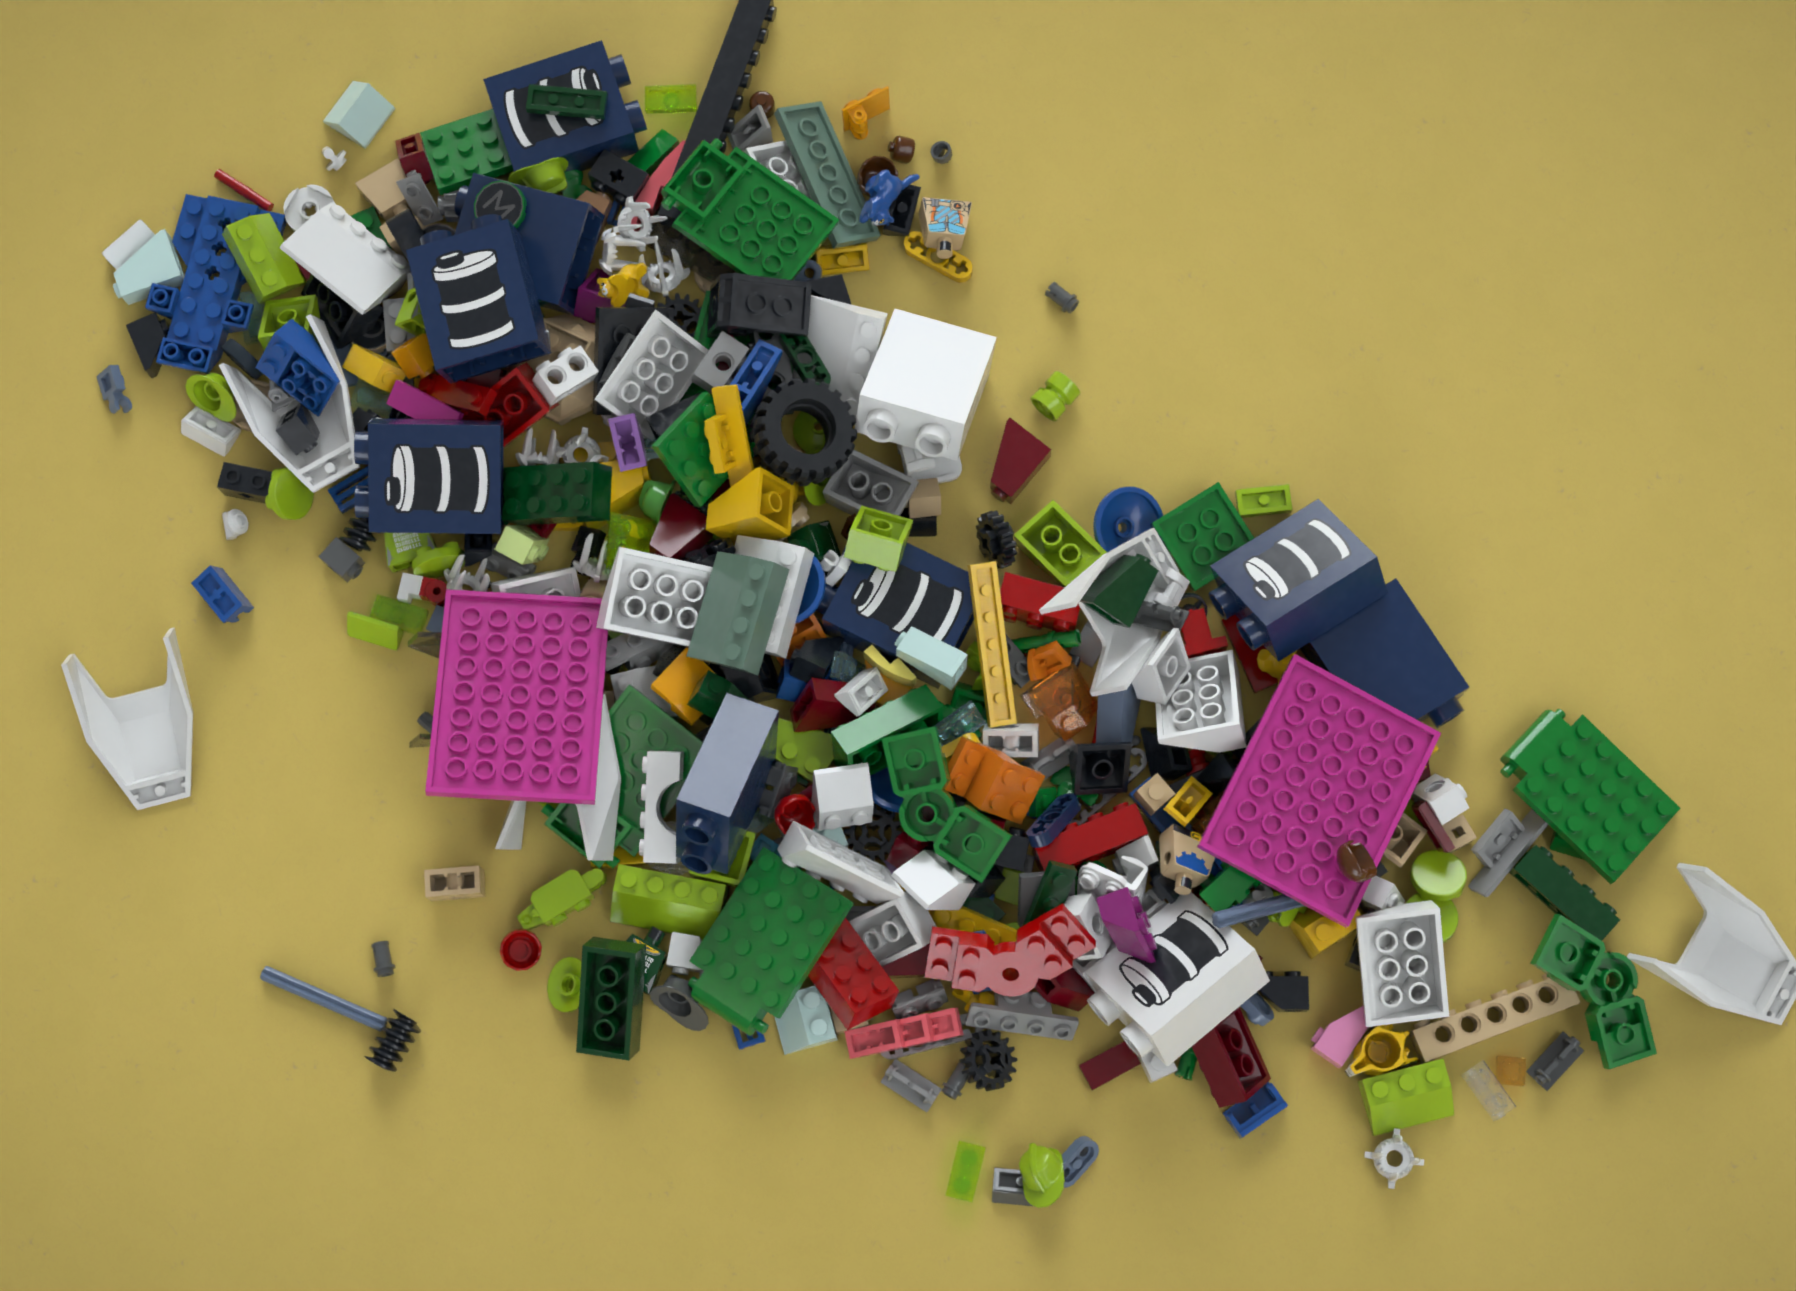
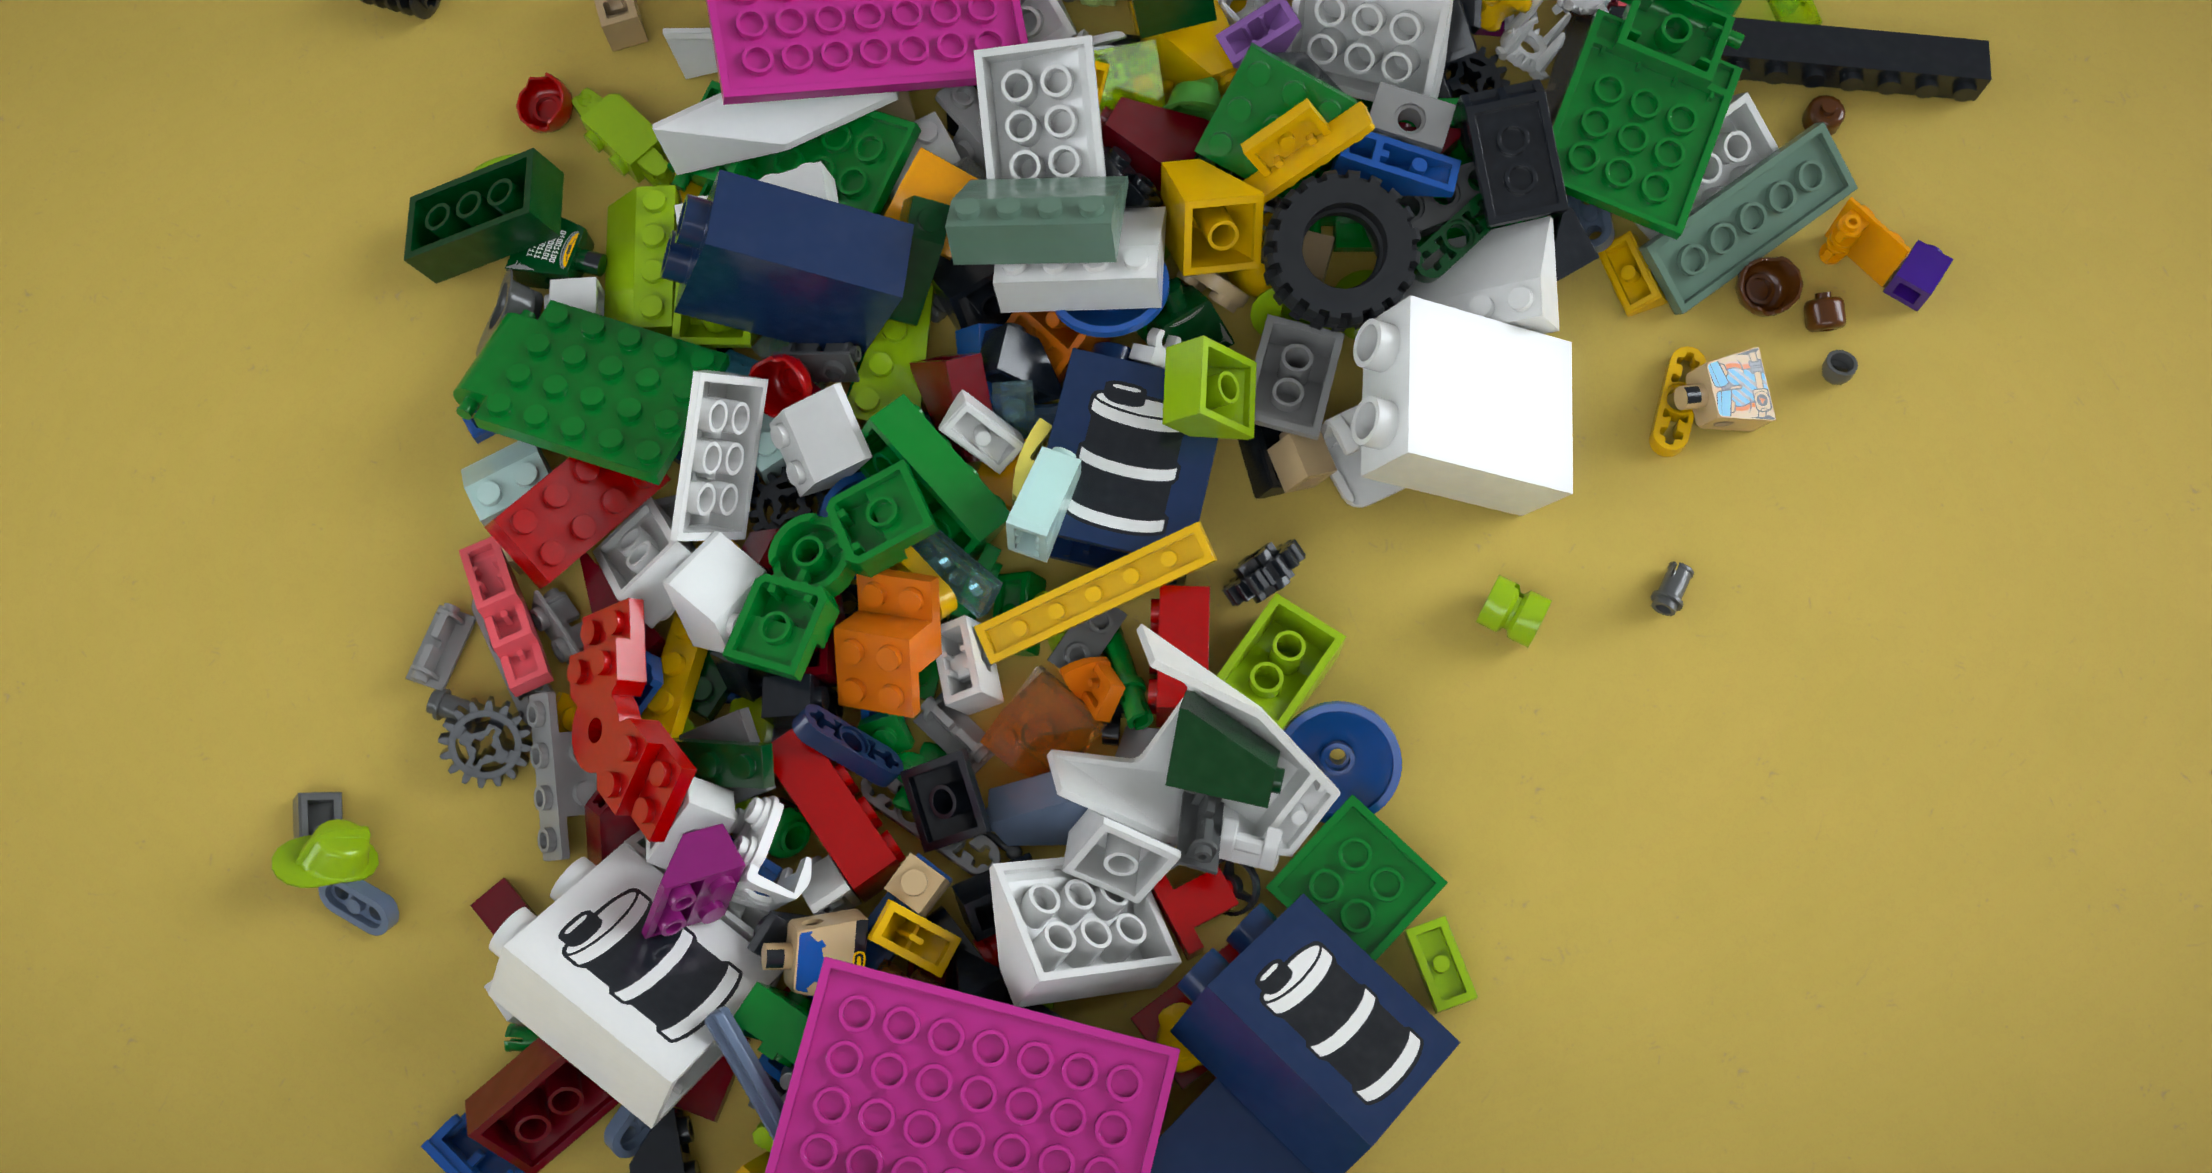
camera: 75 degrees right, 5 degrees down
(751, 130) = (1784, 108): light grey slope -> none
(883, 191) = (1749, 292): blue animal -> none
(899, 85) = (1918, 275): none -> dark purple brick
(902, 211) = (1731, 331): black slope -> none
(965, 1171) = (325, 750): clear neon green plate -> none
(1017, 461) = (1394, 579): dark red slope -> none

